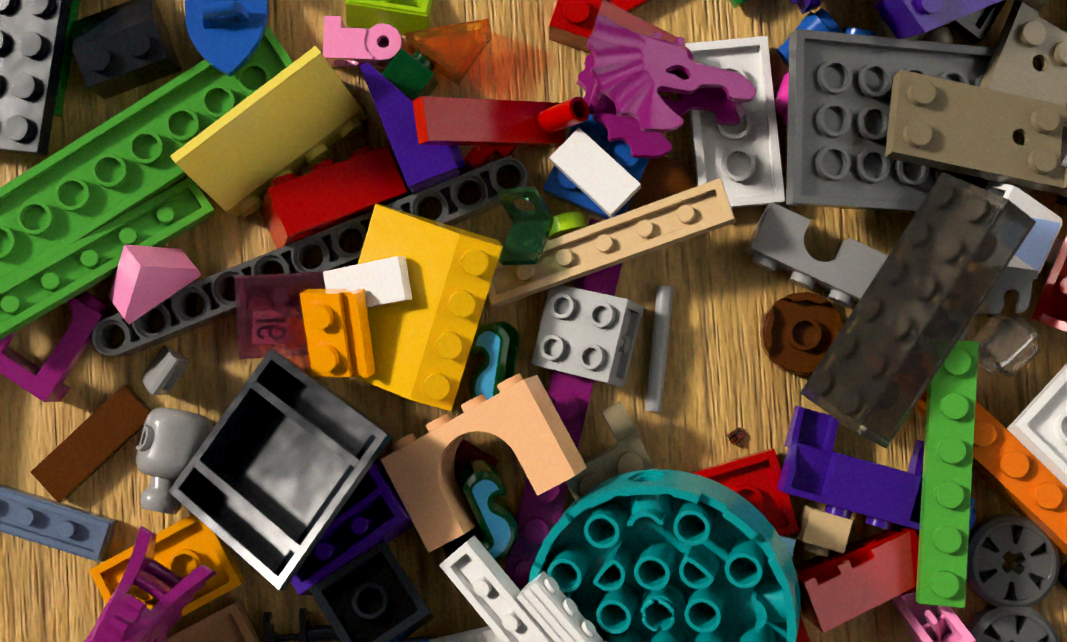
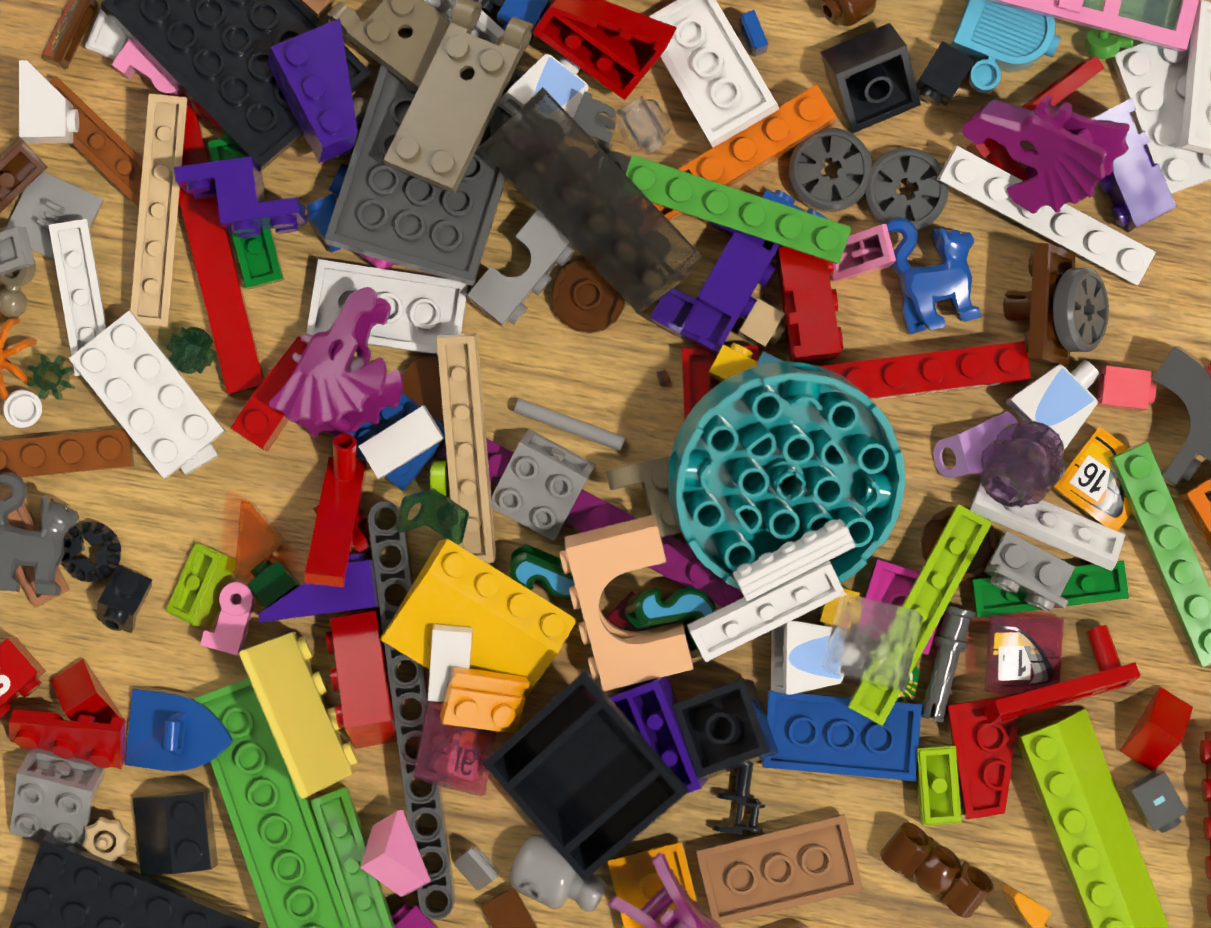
camera: 85 degrees left, 0 degrees up
(776, 507) = (731, 361): none -> yellow plate

